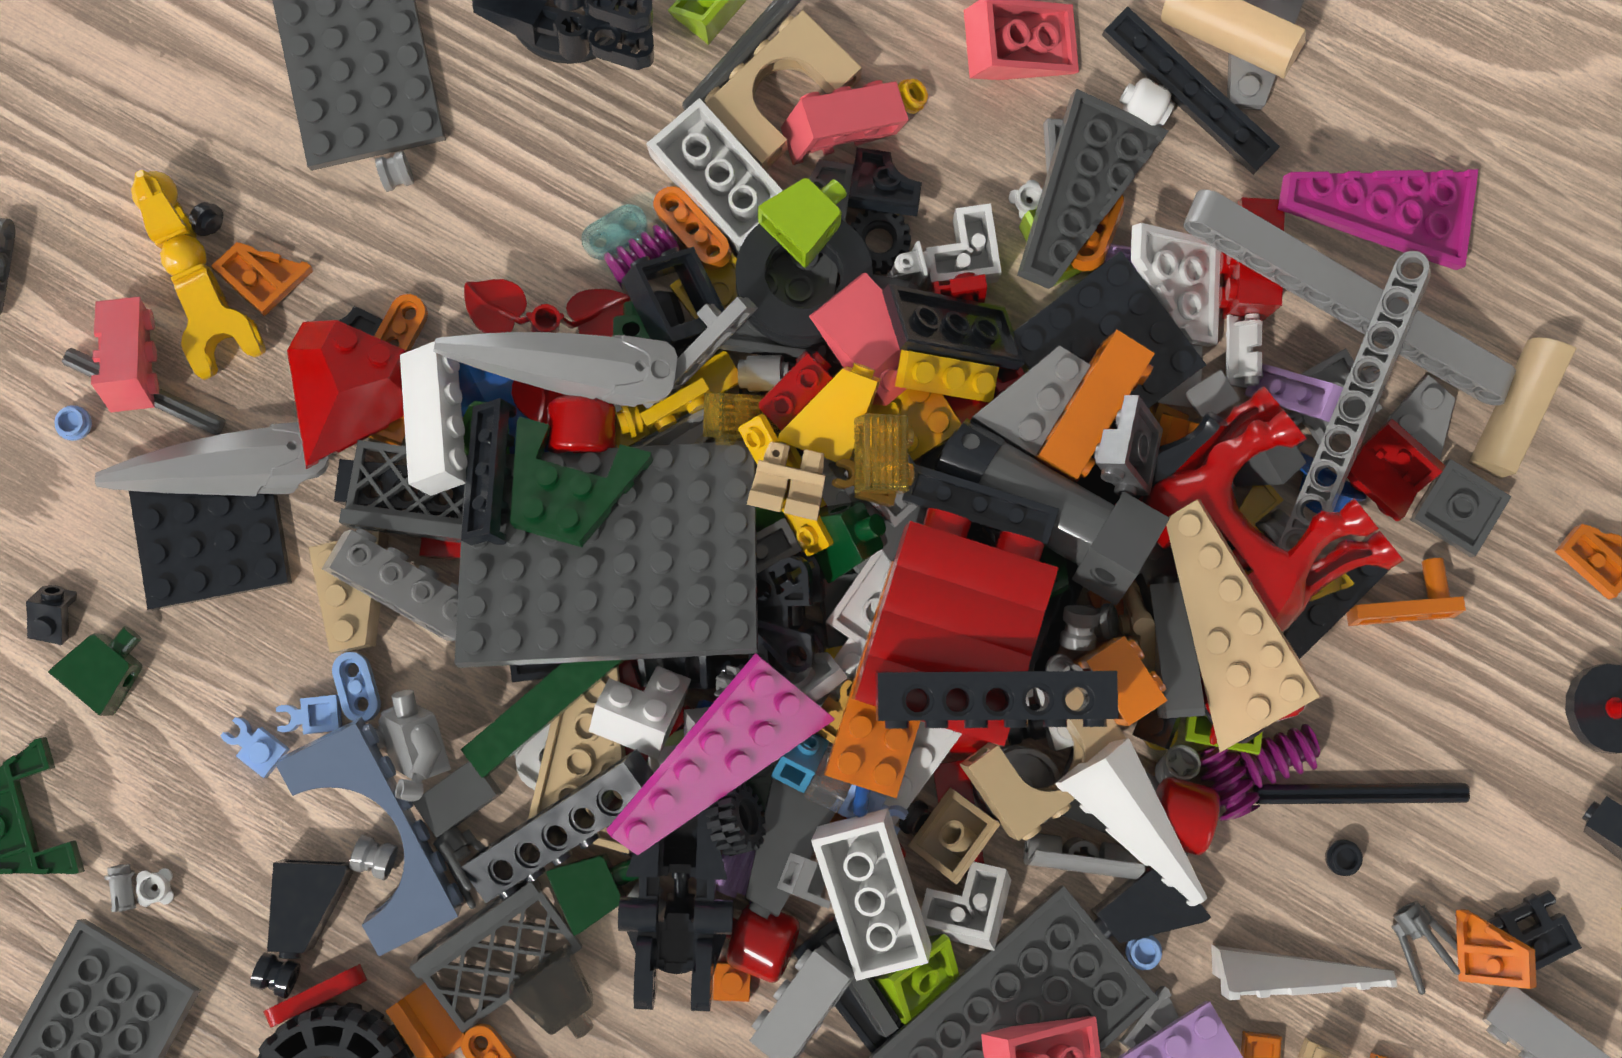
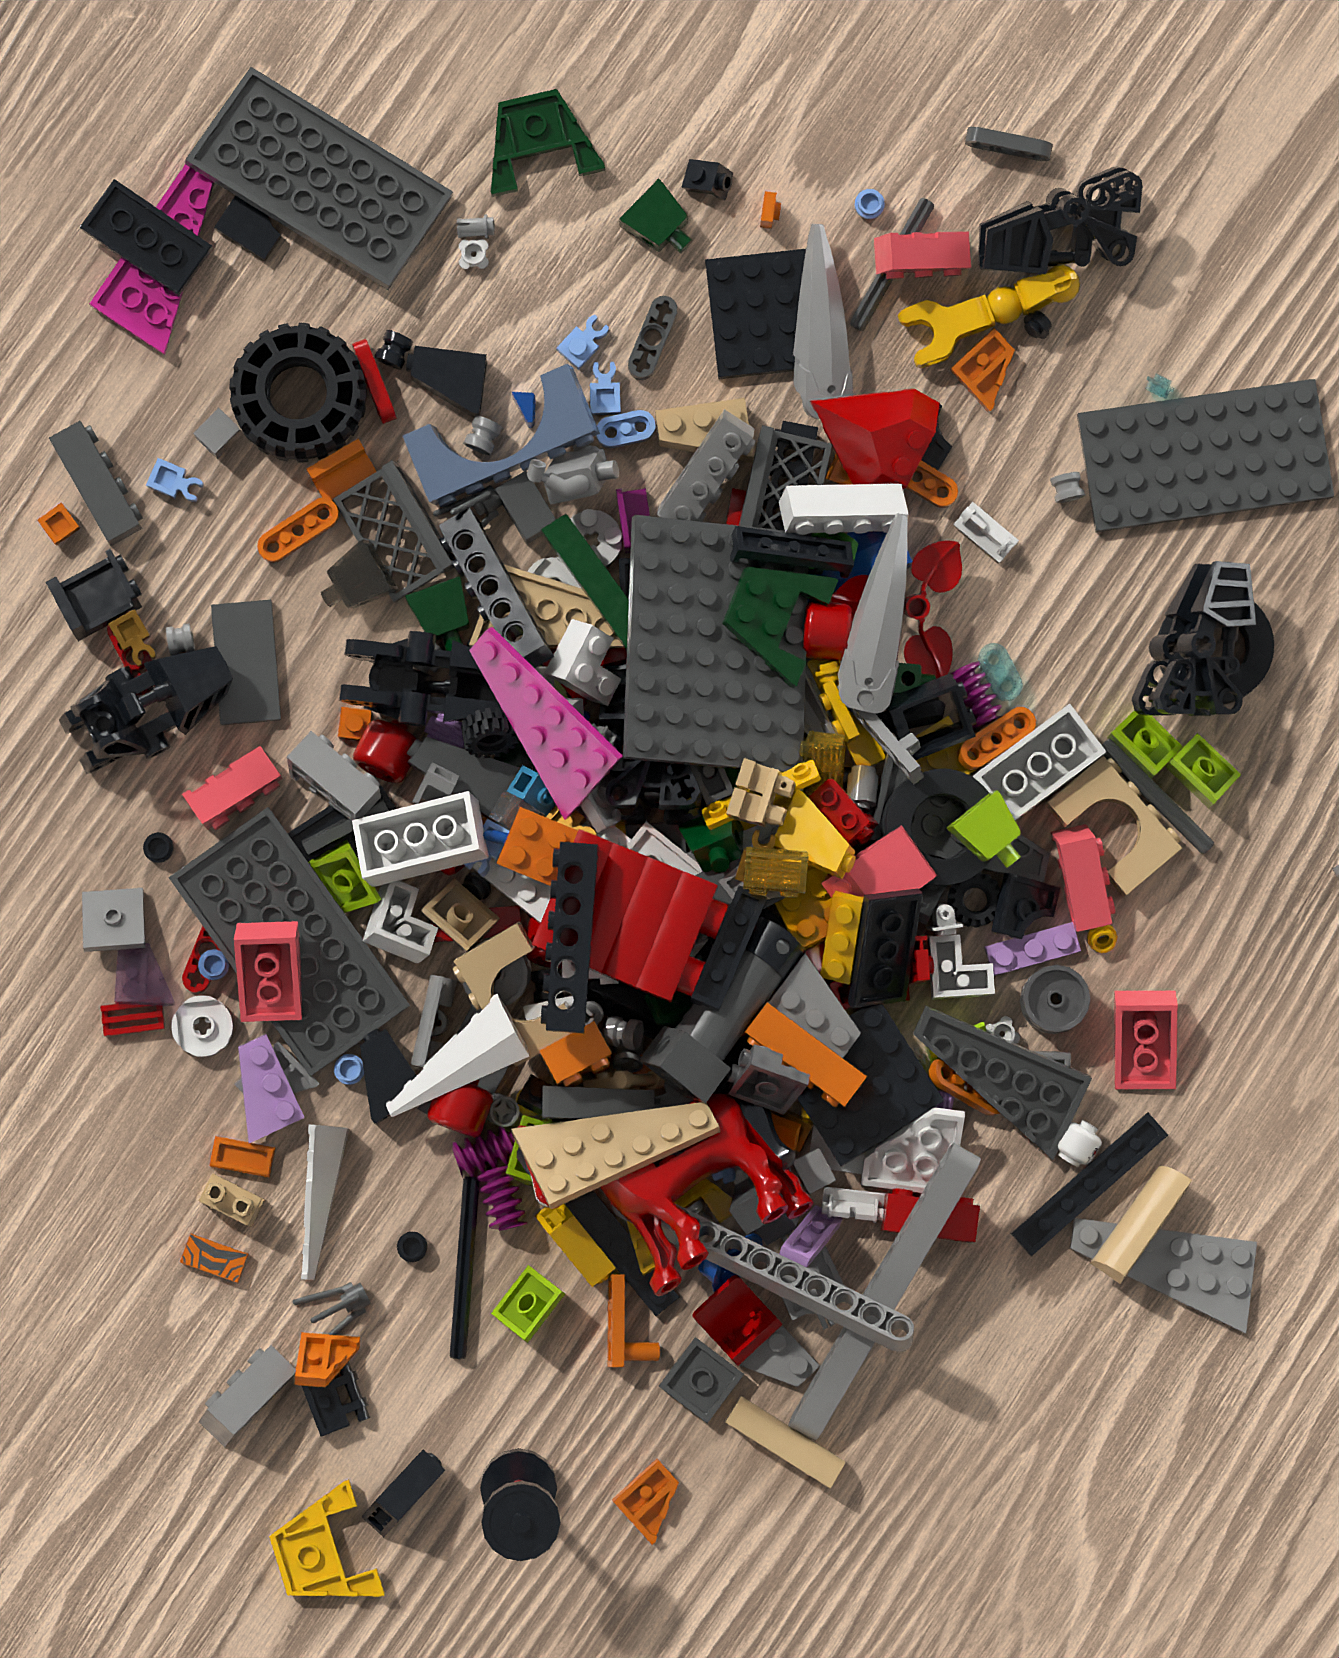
camera: 90 degrees right, 0 degrees up
(83, 537) = (770, 210): none -> orange plate
(97, 230) = (1022, 236): none -> black piece
(224, 647) = (637, 355): none -> dark grey beam
(270, 76) = (1159, 385): none -> clear light blue plate
(333, 808) = (526, 404): none -> blue slope
(447, 675) = (630, 504): none -> magenta panel
(453, 260) = (985, 532): none -> white hinge
(476, 699) = (610, 536): none -> white plate
(684, 64) = (1145, 742): none -> lime slope
(927, 166) = (1033, 949): none -> lavender plate
(989, 119) = (1042, 1012): none -> flat silver wheel
(1335, 656) = (576, 1244): none -> yellow slope
(1390, 208) = (963, 1354): dark pink wing -> none
(1398, 713) = (528, 1303): none -> lime slope

